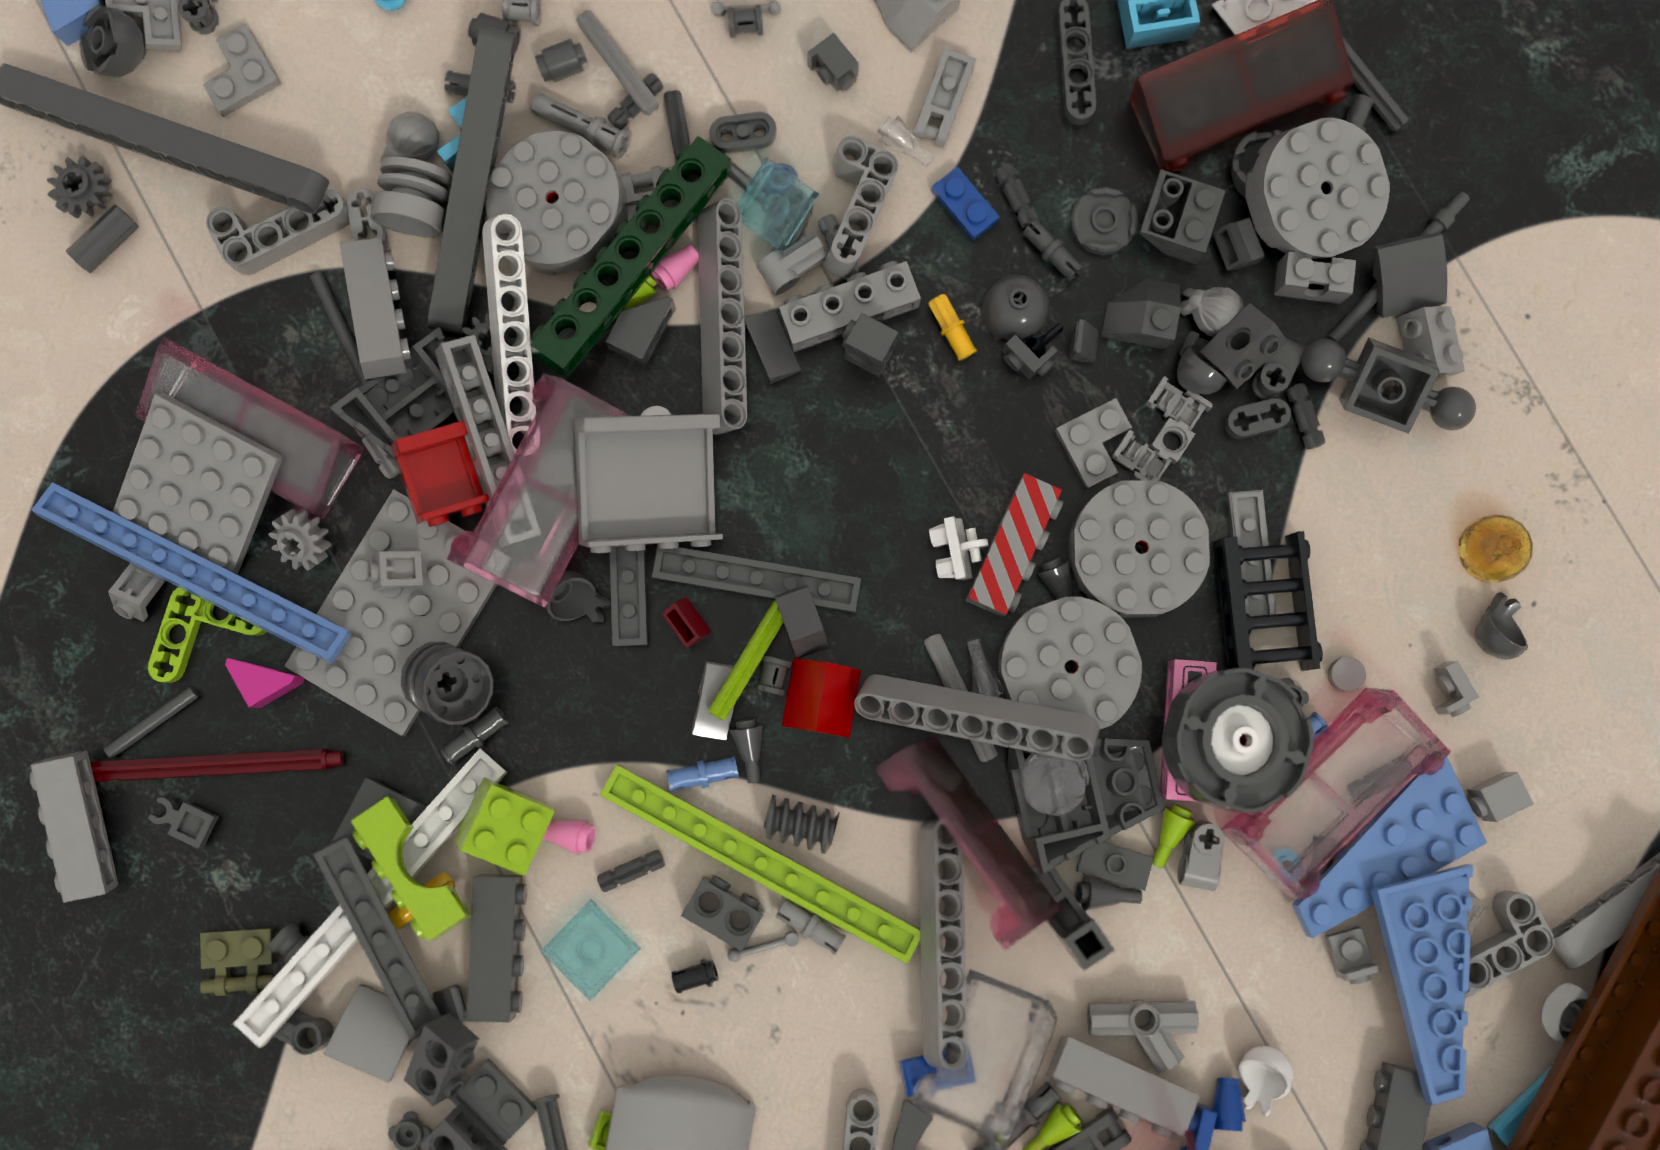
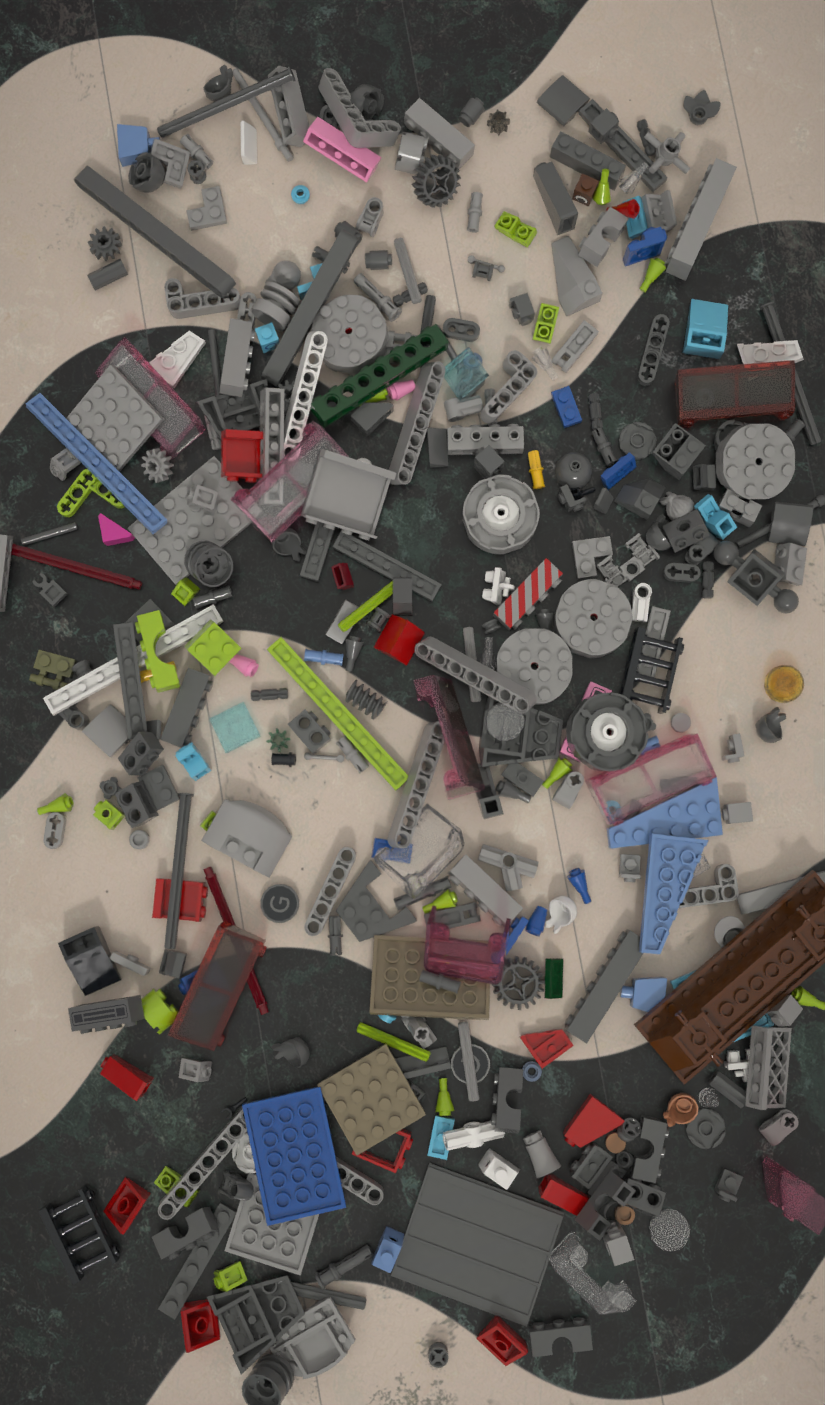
camera: 25 degrees right, 0 degrees up
(273, 343) = (178, 358): none -> white wing
(415, 254) = (267, 337): none -> medium azure brick
(423, 740) = (185, 591): none -> lime slope
(537, 1037) = (193, 761): none -> medium azure brick
(677, 937) = (282, 743): none -> clear green gear
(881, 74) = (545, 323): none -> lime slope
(927, 392) = (506, 497): none -> light grey piece
(971, 621) = (491, 626): none -> dark grey bush
(1096, 275) = (618, 470): none -> blue plate
(1209, 497) = (640, 605): none -> white piece
(1271, 1006) = (578, 880): none -> blue cone
(1291, 311) = (716, 520): none -> medium azure brick

